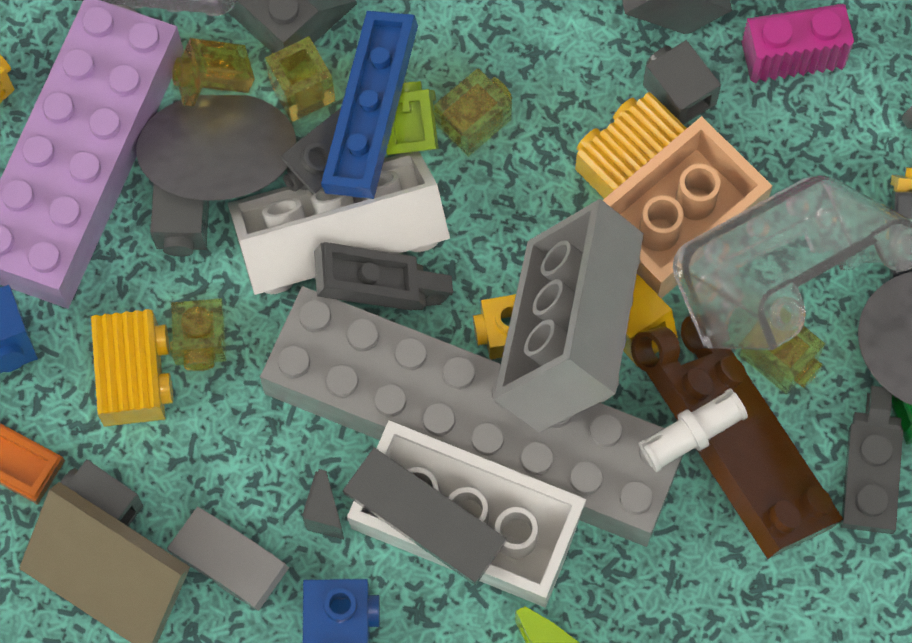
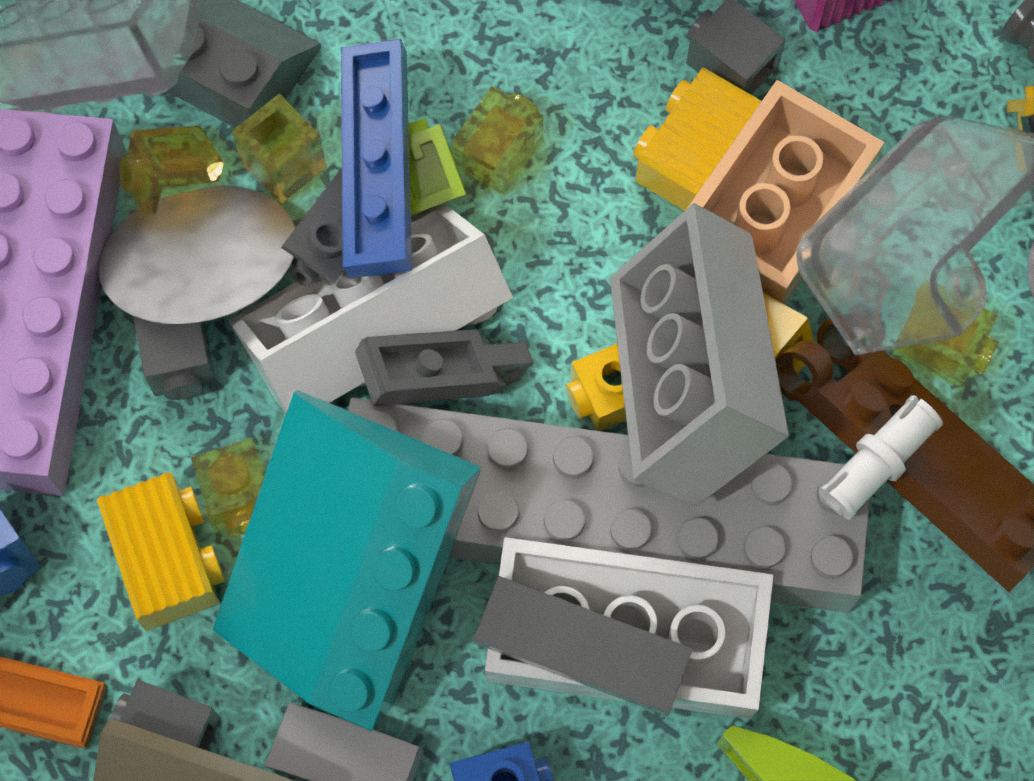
camera: 15 degrees left, 0 degrees up
(264, 406) = (343, 557): none -> teal slope
(320, 509) = (446, 668): dark grey slope -> none

